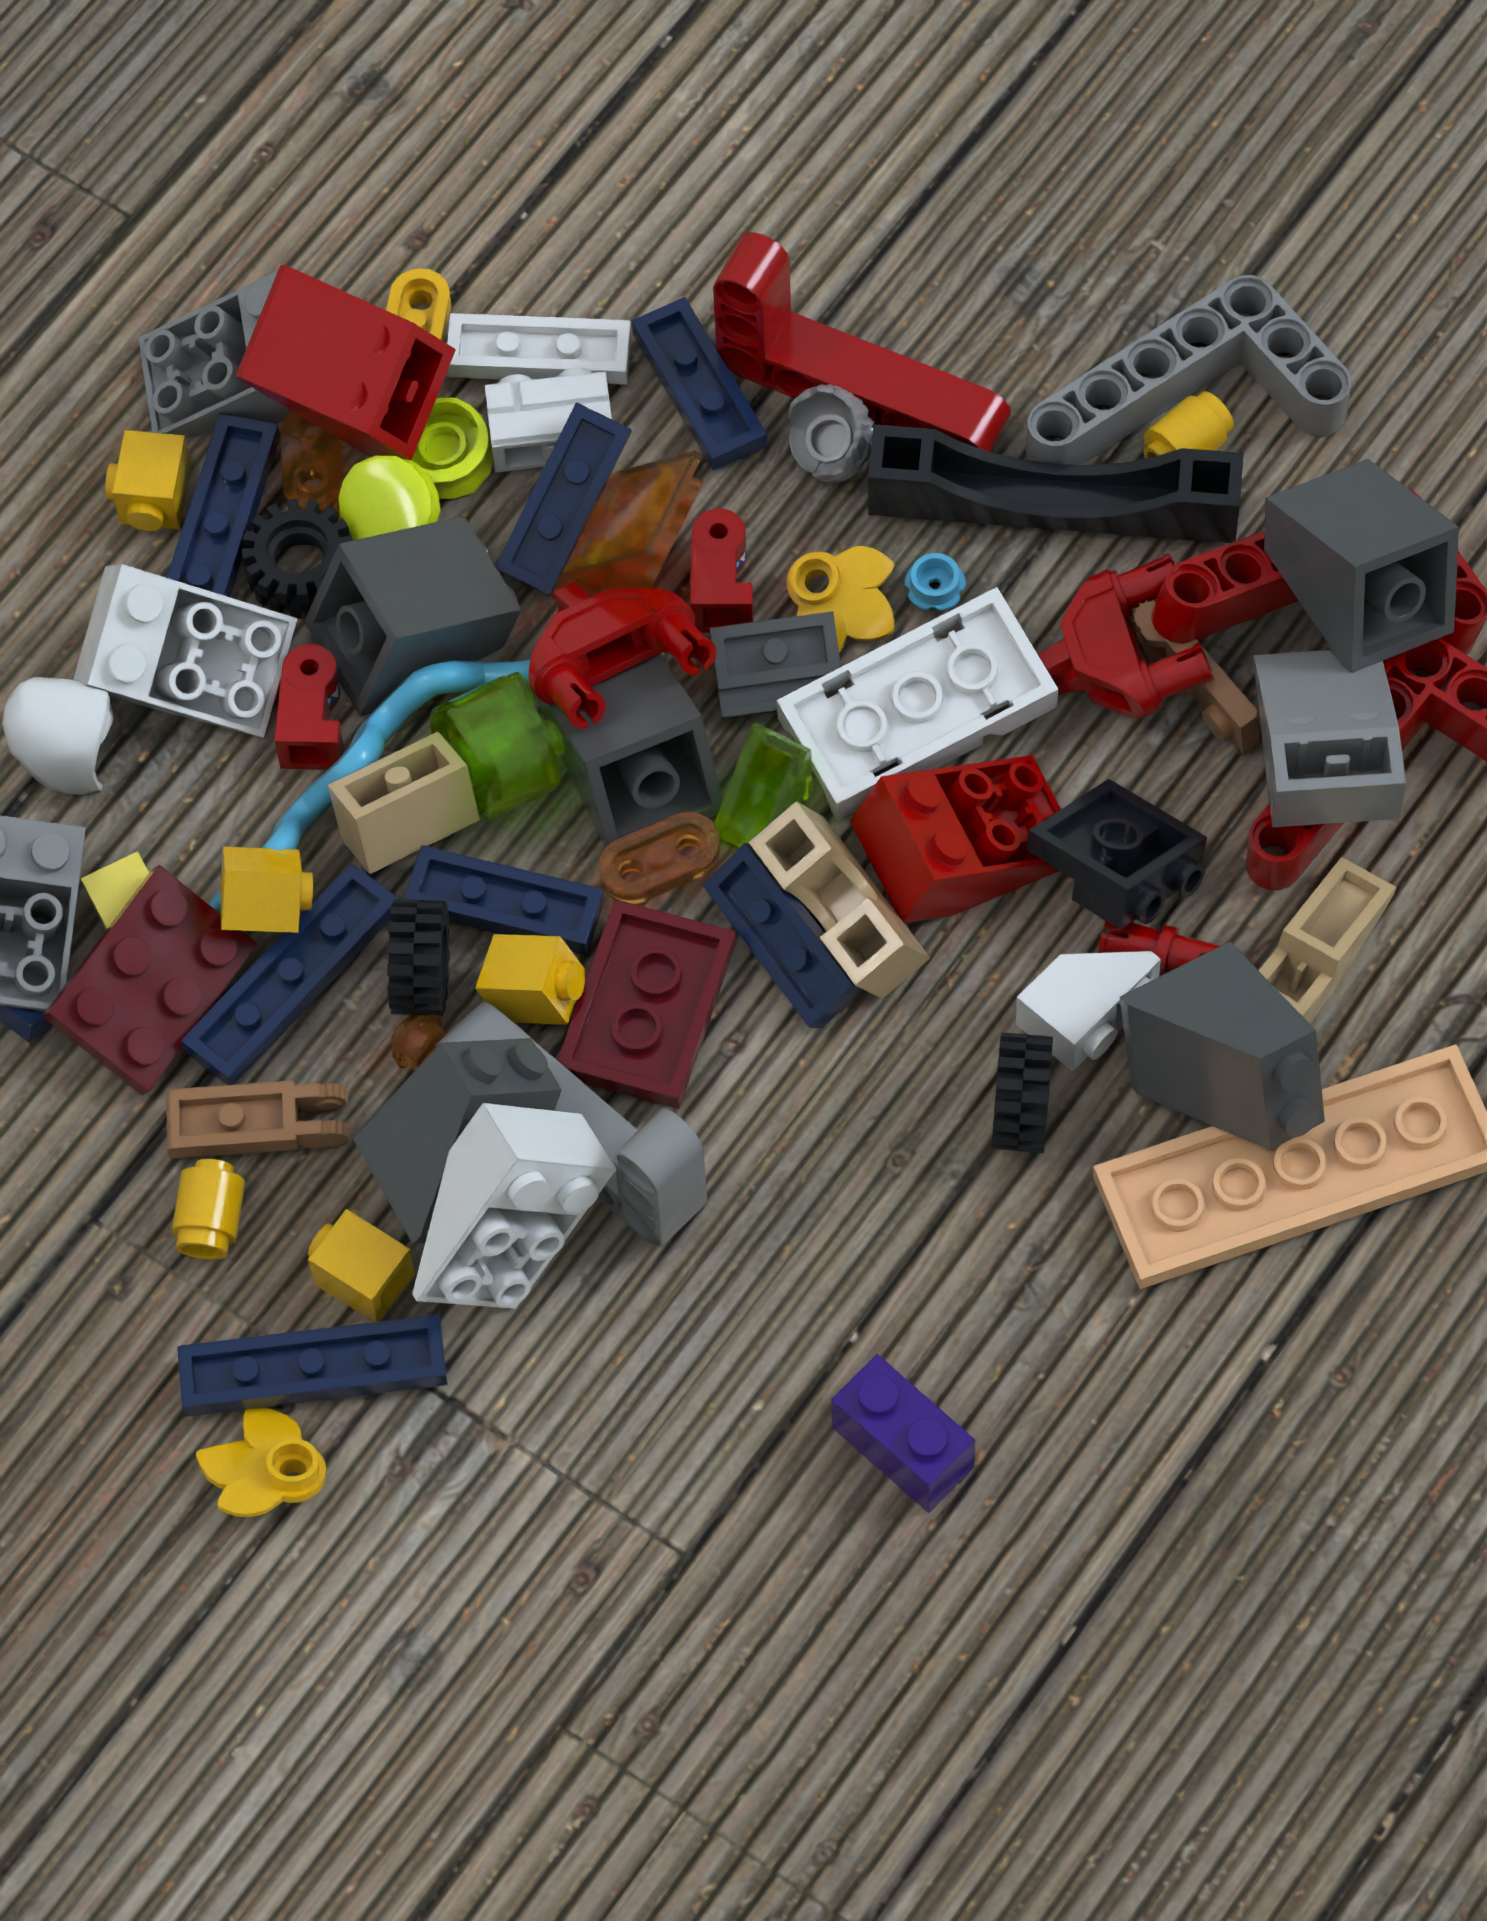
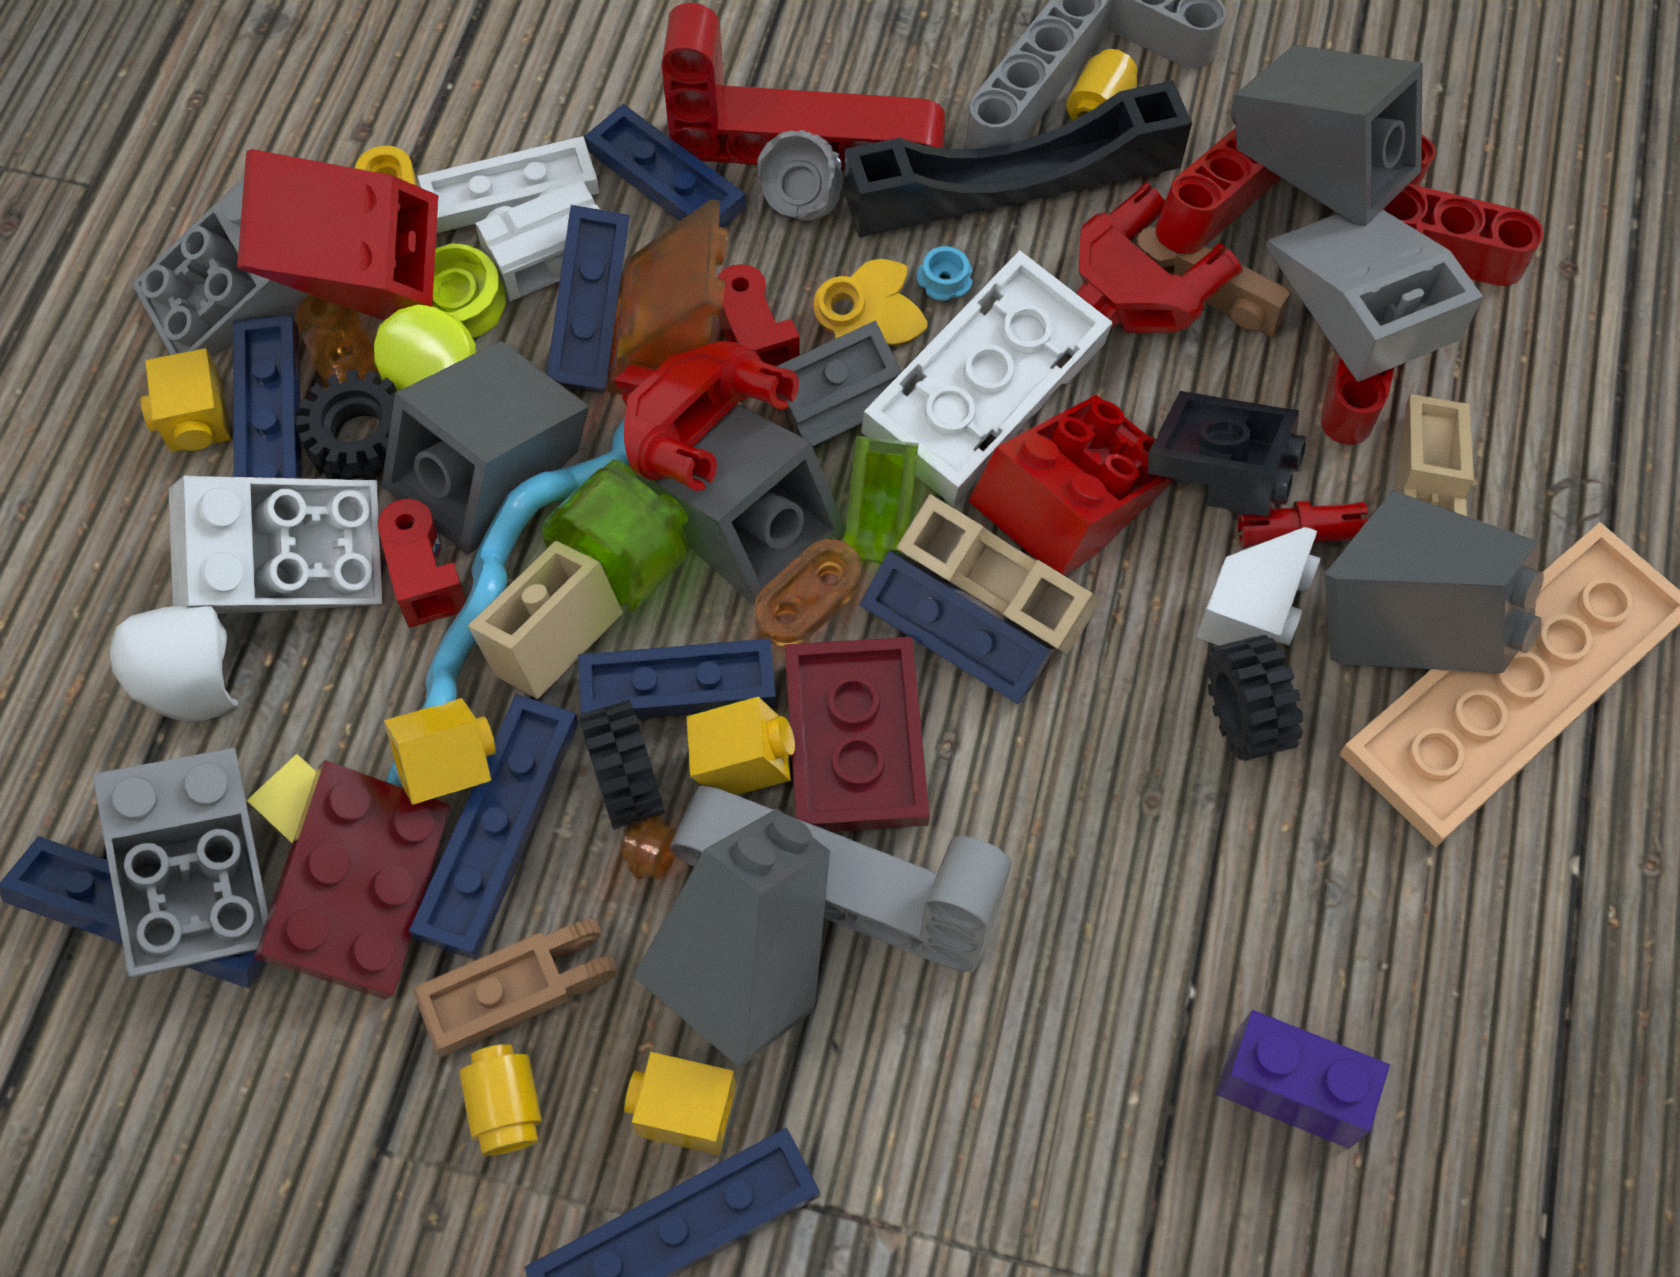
camera: 25 degrees left, 0 degrees up
(508, 1204) = (827, 988): white slope -> none

